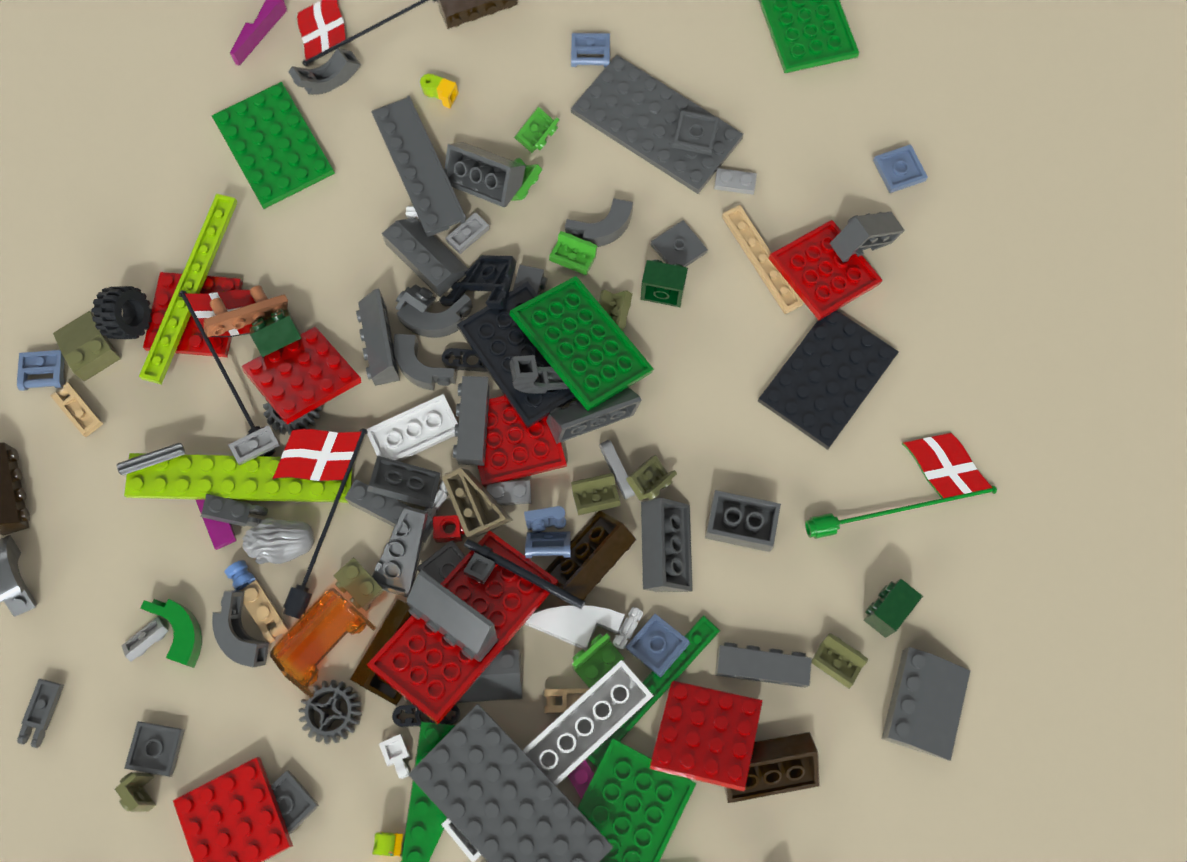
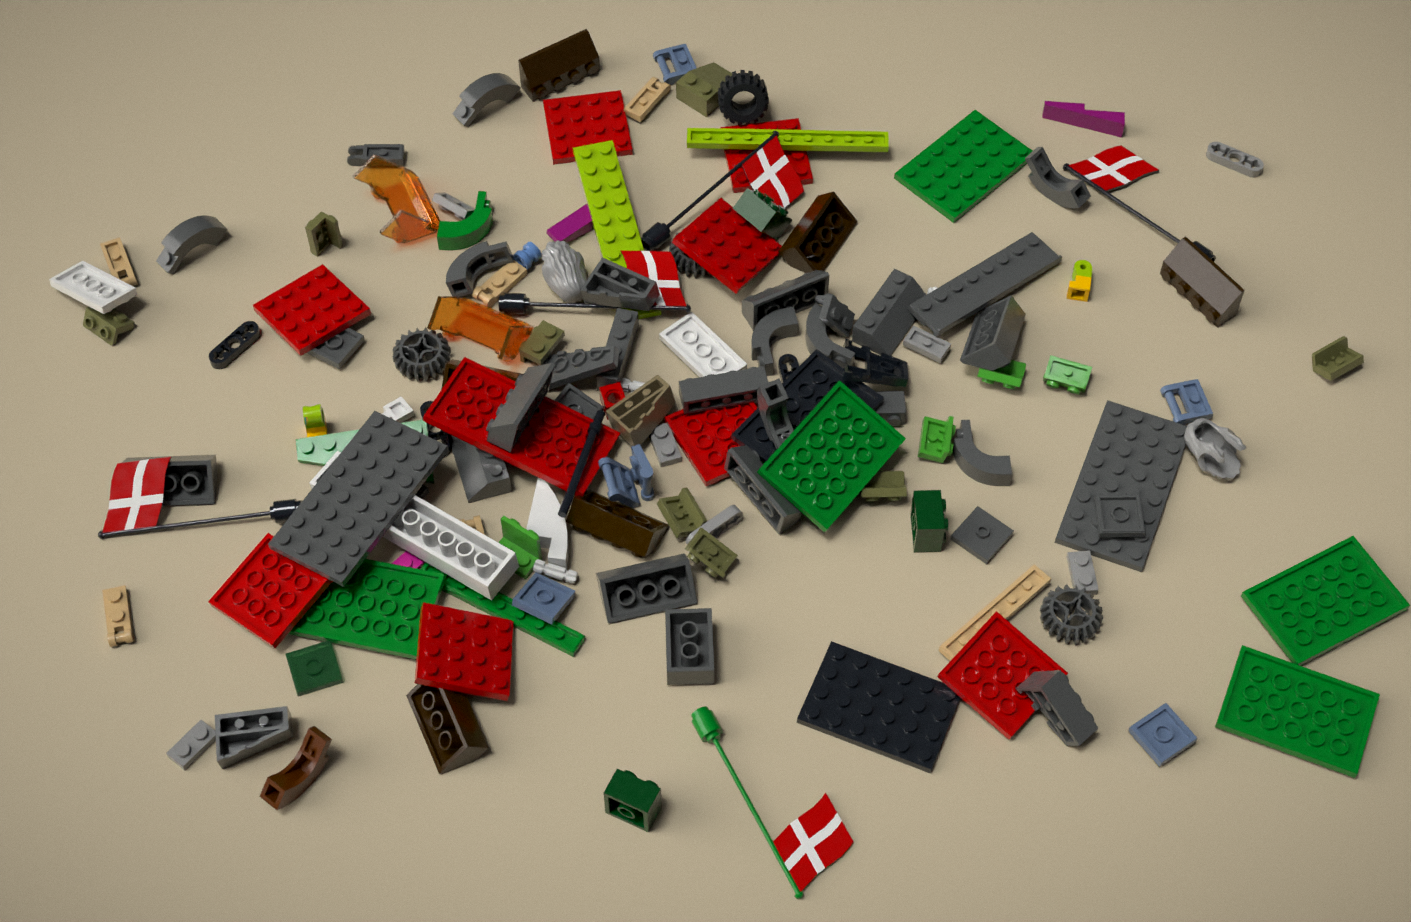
camera: 75 degrees right, 15 degrees down
(84, 479) = (586, 121): none -> red plate
(119, 690) = (405, 197): none -> clear orange windscreen
(150, 458) = (610, 154): axle -> none
(154, 749) = (362, 240): dark grey plate -> none
(231, 511) = (583, 230): dark grey hinge -> none
(242, 316) = (767, 182): nougat plate -> none
(253, 445) = (646, 226): light grey plate -> none
(311, 291) = (818, 234): none -> dark brown slope
(324, 488) = (619, 287): none -> dark grey wedge
(404, 482) = (646, 349): dark grey plate -> none
(479, 568) = (576, 425): dark grey plate -> none
(643, 44) = (1214, 448): none -> light grey hair
(763, 666) = (545, 696): dark grey brick -> none
(777, 207) = (1063, 603): none -> dark grey gear
(839, 660) = (566, 765): olive bracket -> none
(897, 68) = (1298, 711): none -> green plate
(926, 703) = (543, 857): dark grey slope -> none

